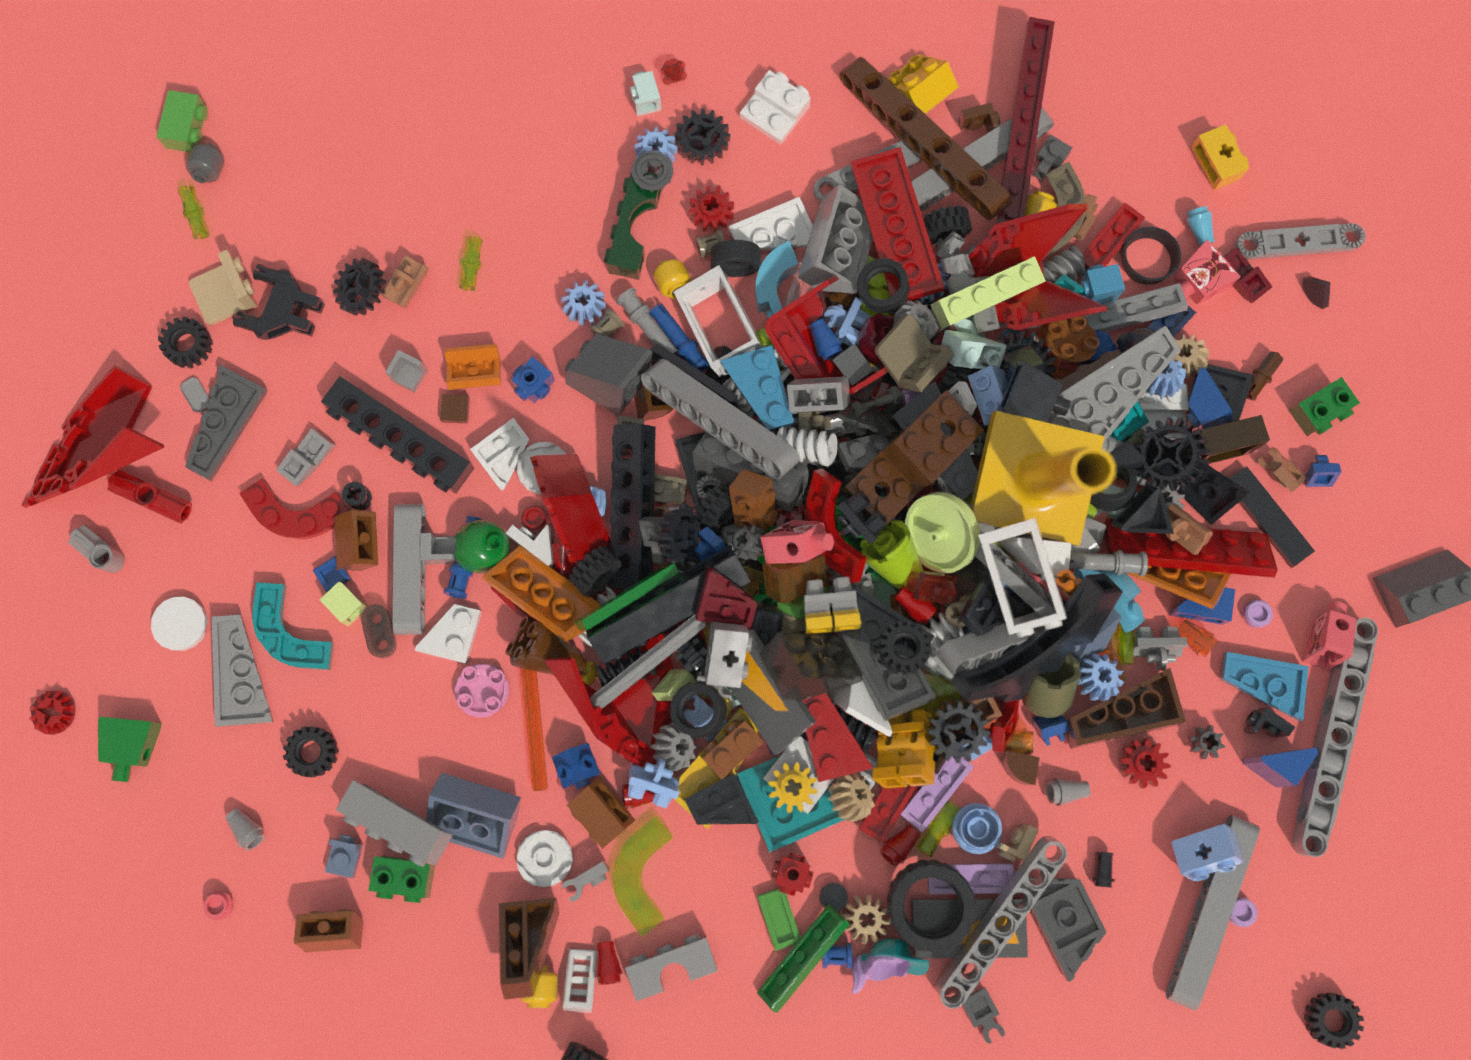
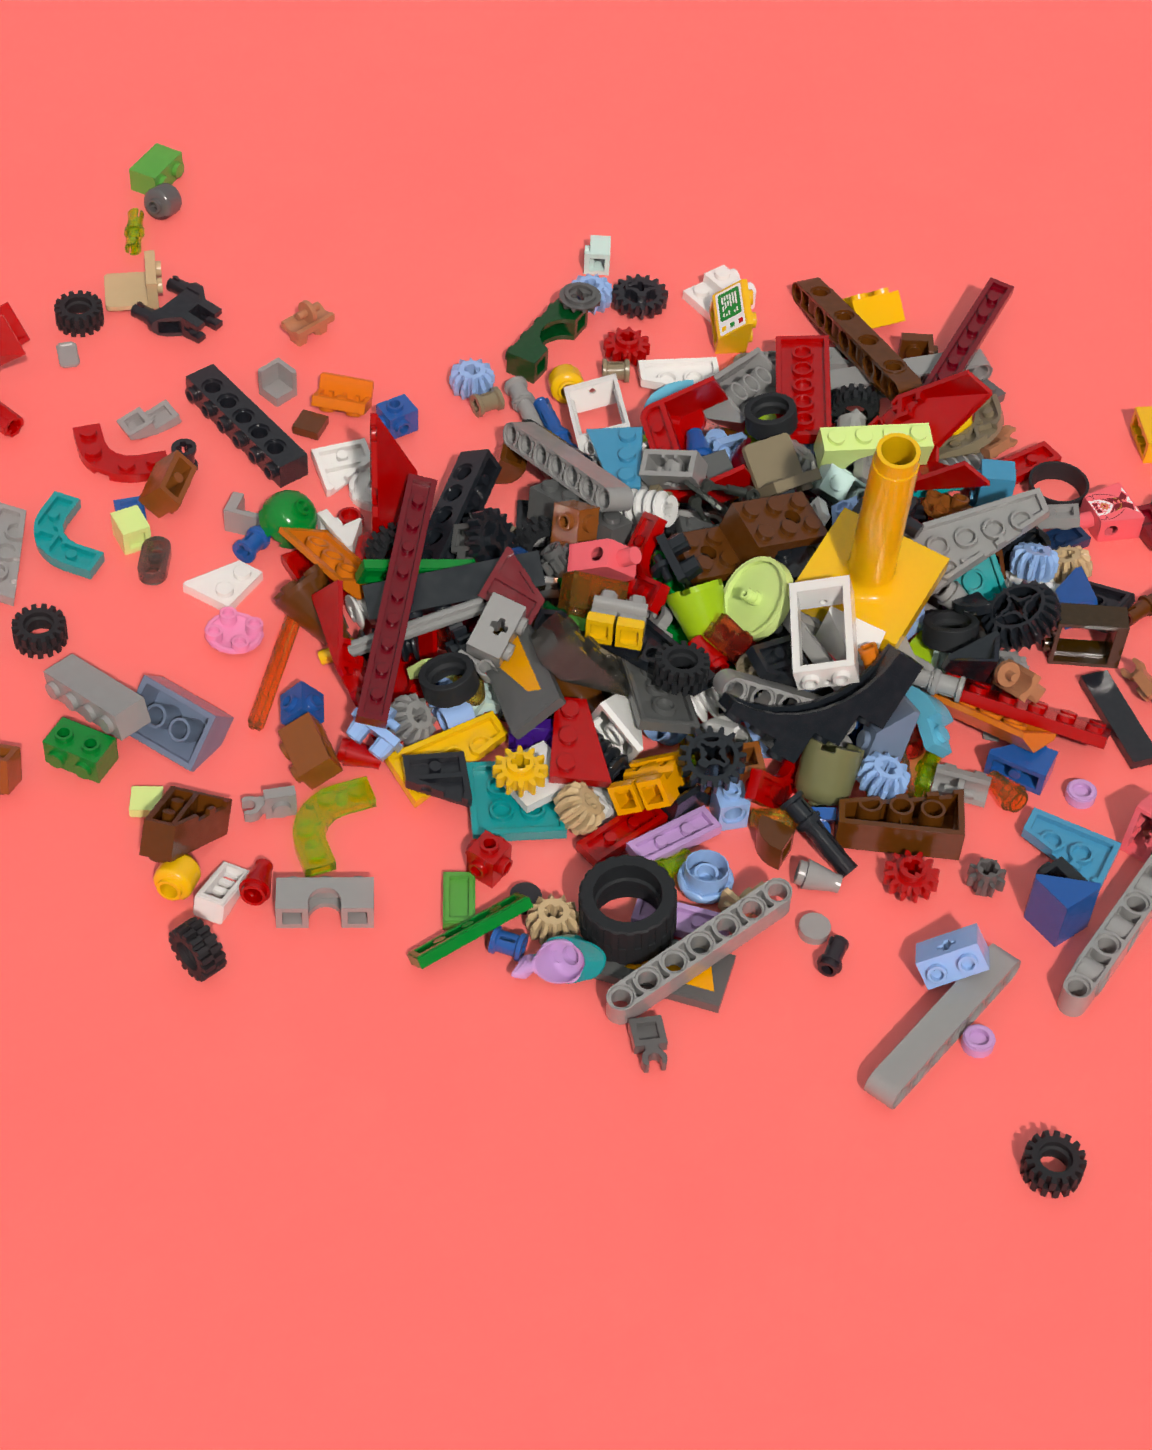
camera: 15 degrees right, 30 degrees down
(227, 414) = (92, 371): dark grey wing -> none
(343, 856) = (30, 720): sand blue bracket -> none
(359, 286) = (262, 313): black gear -> none
(408, 570) = (205, 524): light grey beam -> none
(470, 263) = (376, 328): clear neon green pin -> none
(479, 907) = (144, 799): none -> yellowish green tile
(544, 858) = (234, 779): white tile -> none
(608, 371) = (472, 423): dark grey slope -> none
(627, 653) = (396, 602): none -> dark red plate
(673, 71) = (631, 241): clear red plate -> none
(731, 749) = (470, 728): dark orange brick -> none
(736, 257) = (642, 366): black tyre -> none
(801, 147) = (732, 318): none -> slope
(1050, 748) = (809, 822): none -> black pin
(1068, 923) = (774, 987): dark grey wing -> none
(1078, 842) = (814, 928): none -> light grey tile
(1201, 224) = (1119, 471): medium azure cone -> none
(1213, 491) = (1060, 669): black wing -> none

